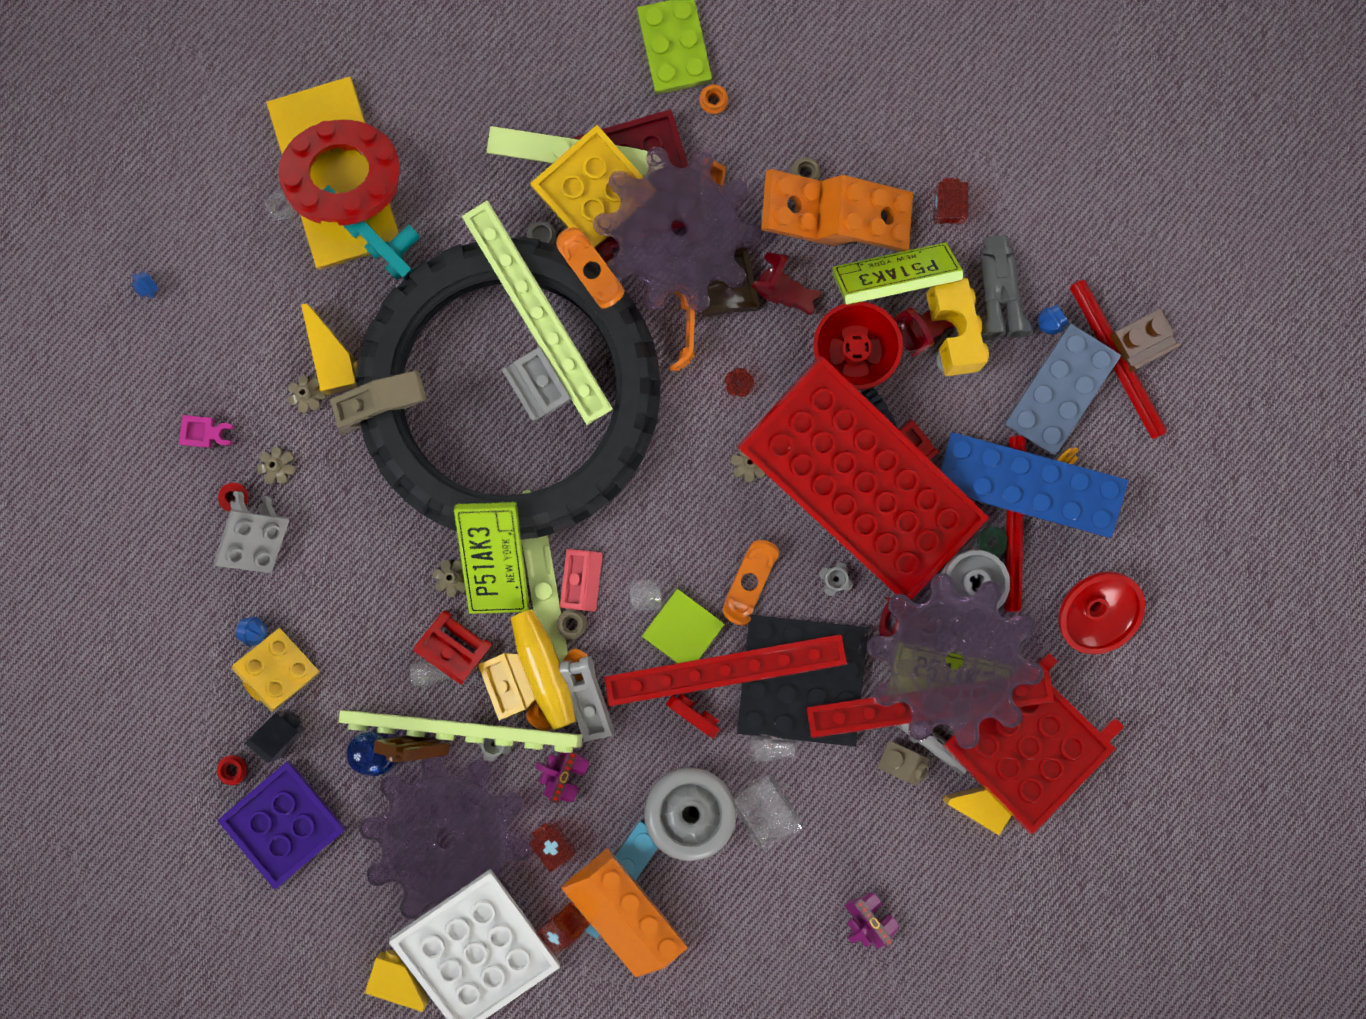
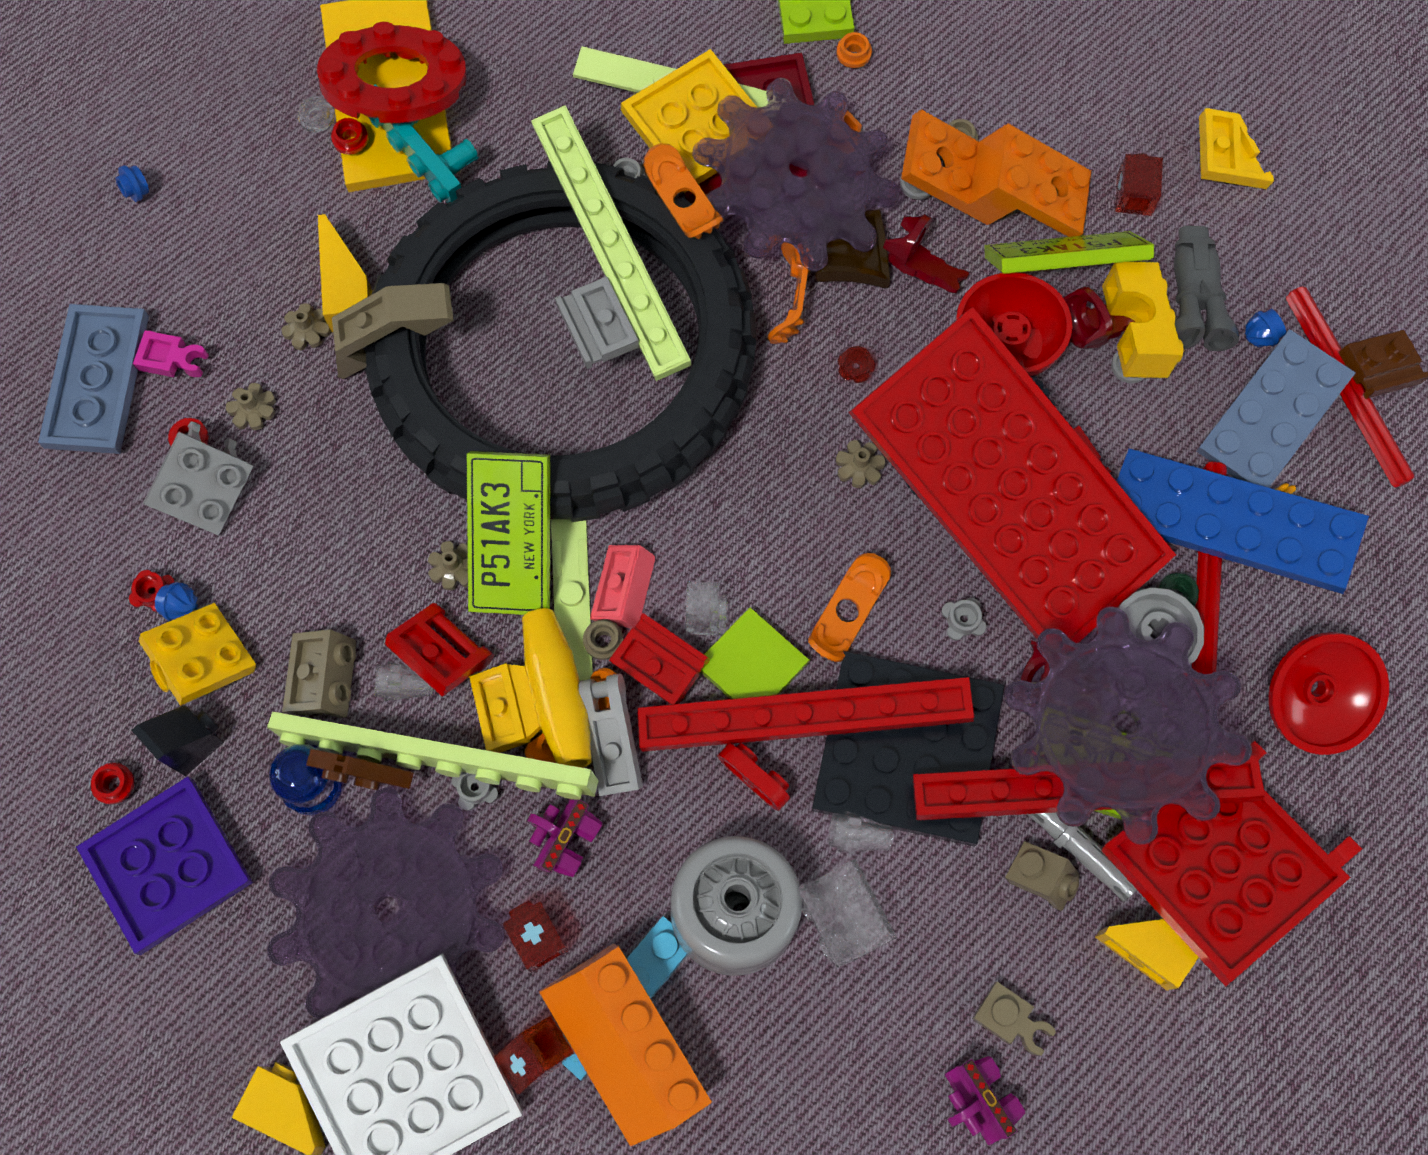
camera: 10 degrees right, 15 degrees down
(150, 457) = (93, 379): none -> sand blue plate
(224, 615) = (142, 584): none -> red plate
(304, 226) = (349, 128): none -> red plate
(367, 674) = (319, 674): none -> dark tan bracket
(615, 637) = (659, 660): none -> red plate
(885, 862) = (1007, 1017): none -> dark tan plate
(1022, 162) = (1228, 151): none -> yellow wing

